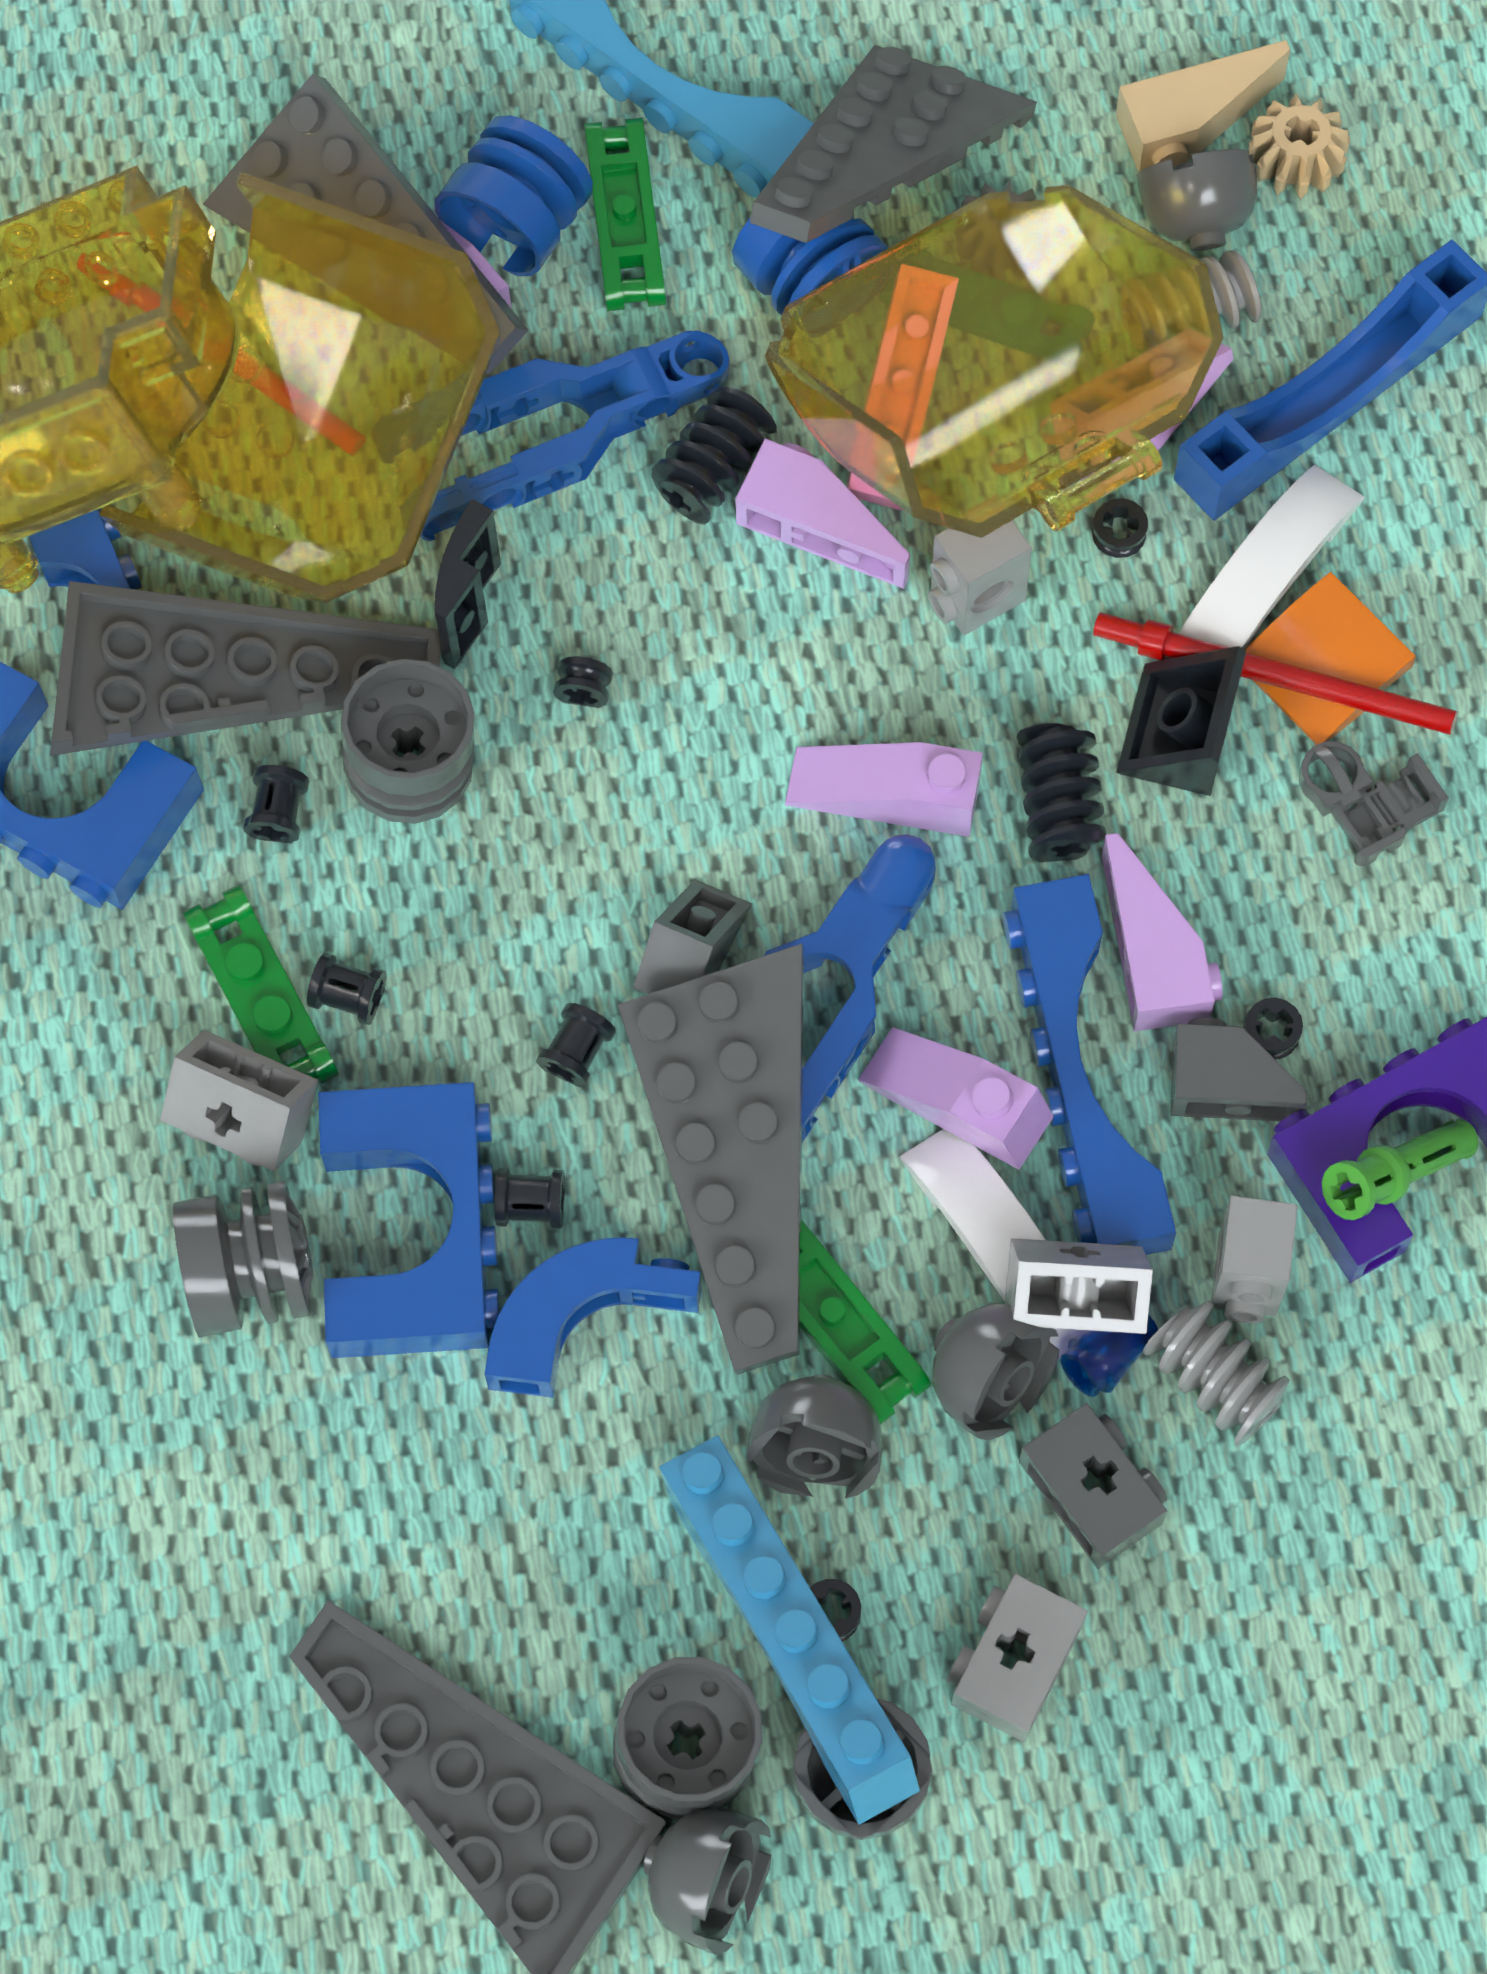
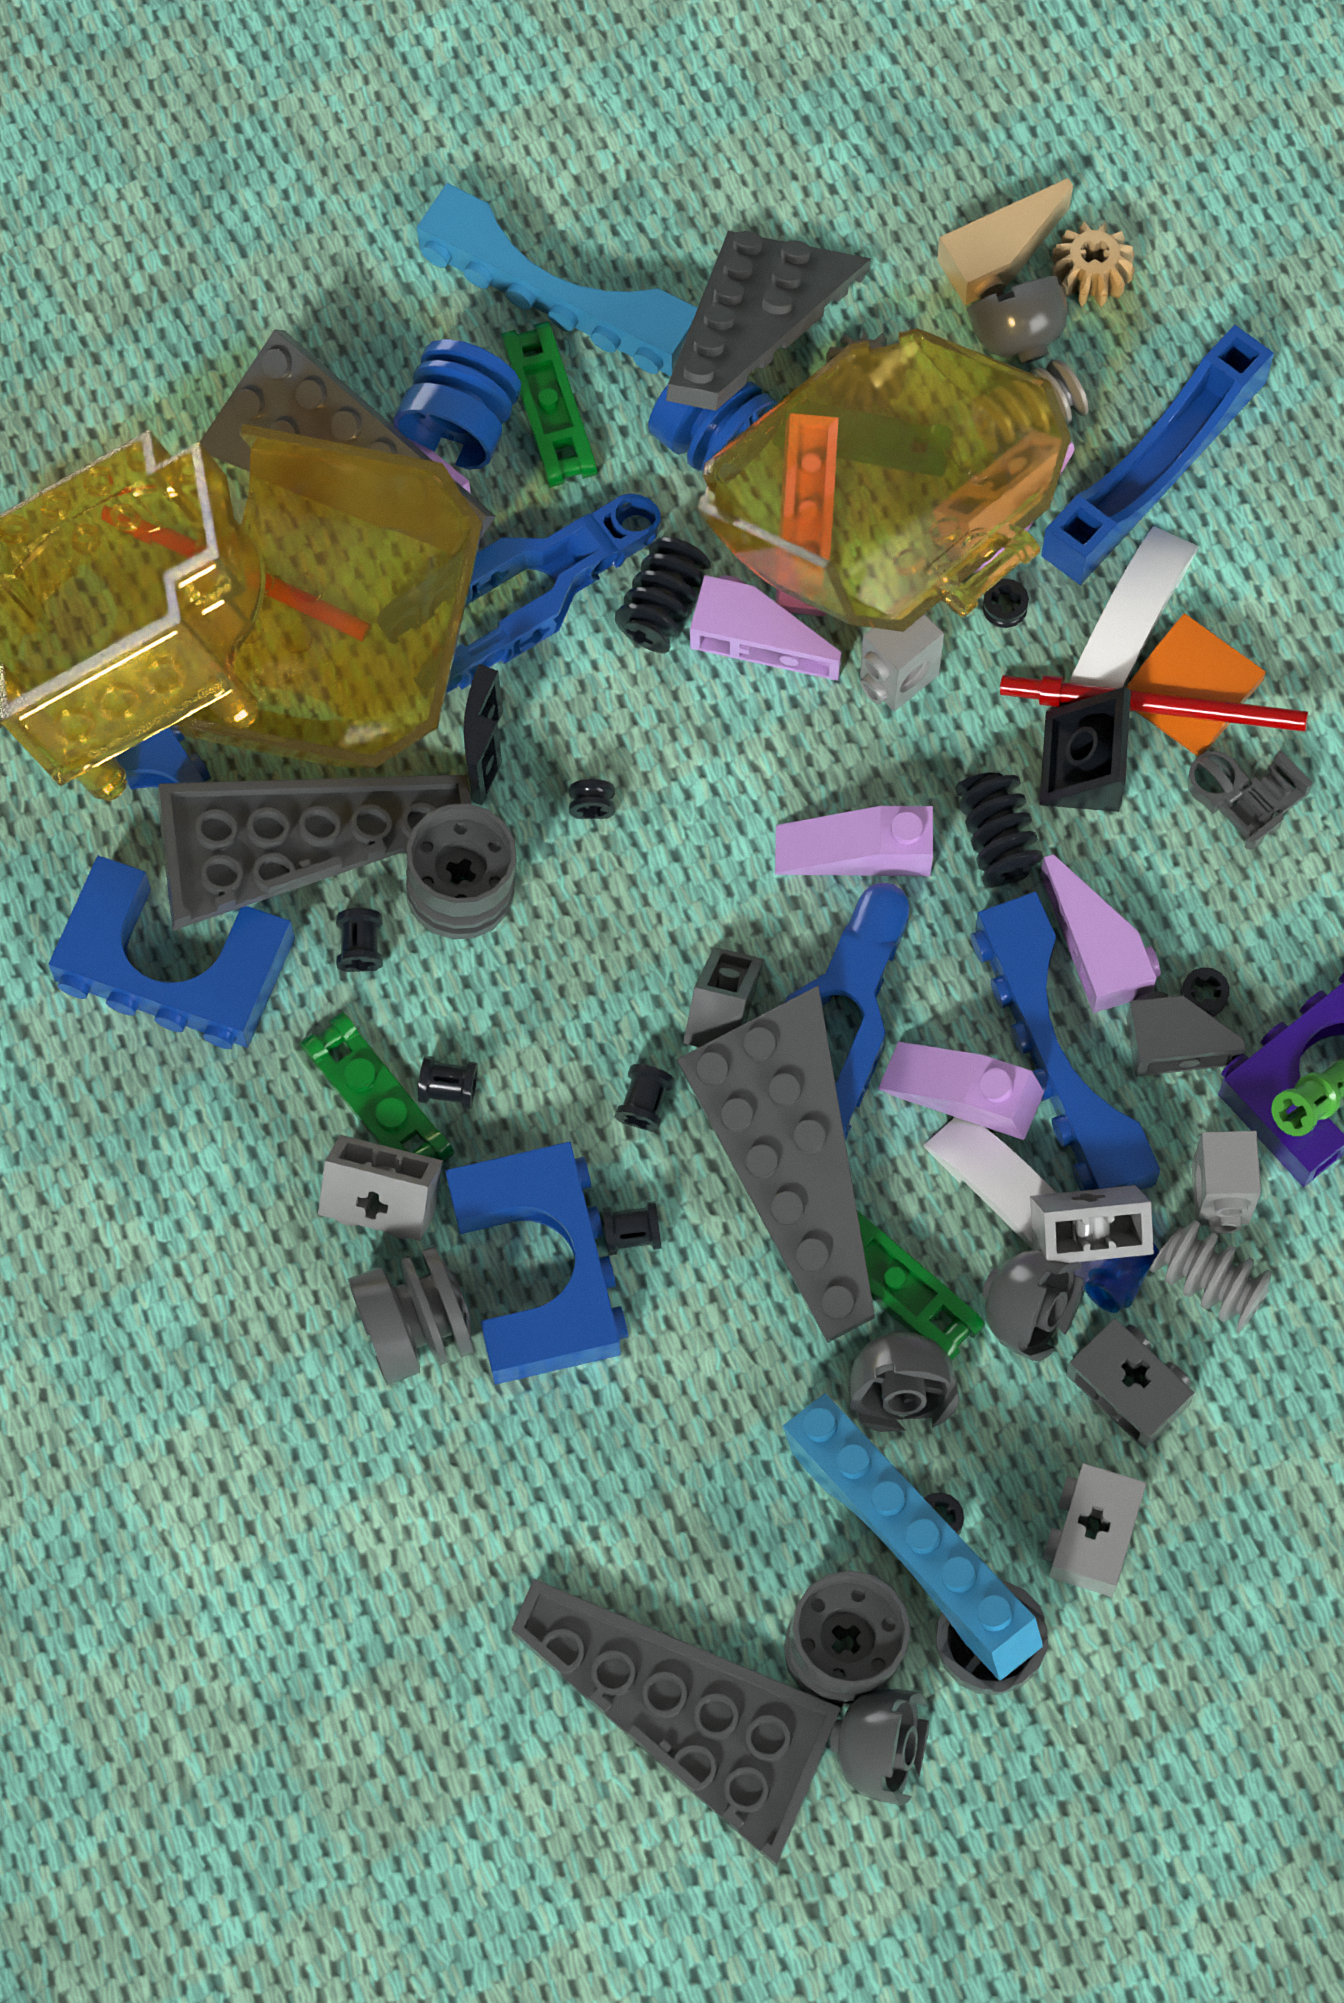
camera: 10 degrees left, 0 degrees up
(565, 1291) = (678, 1297): blue arch -> none

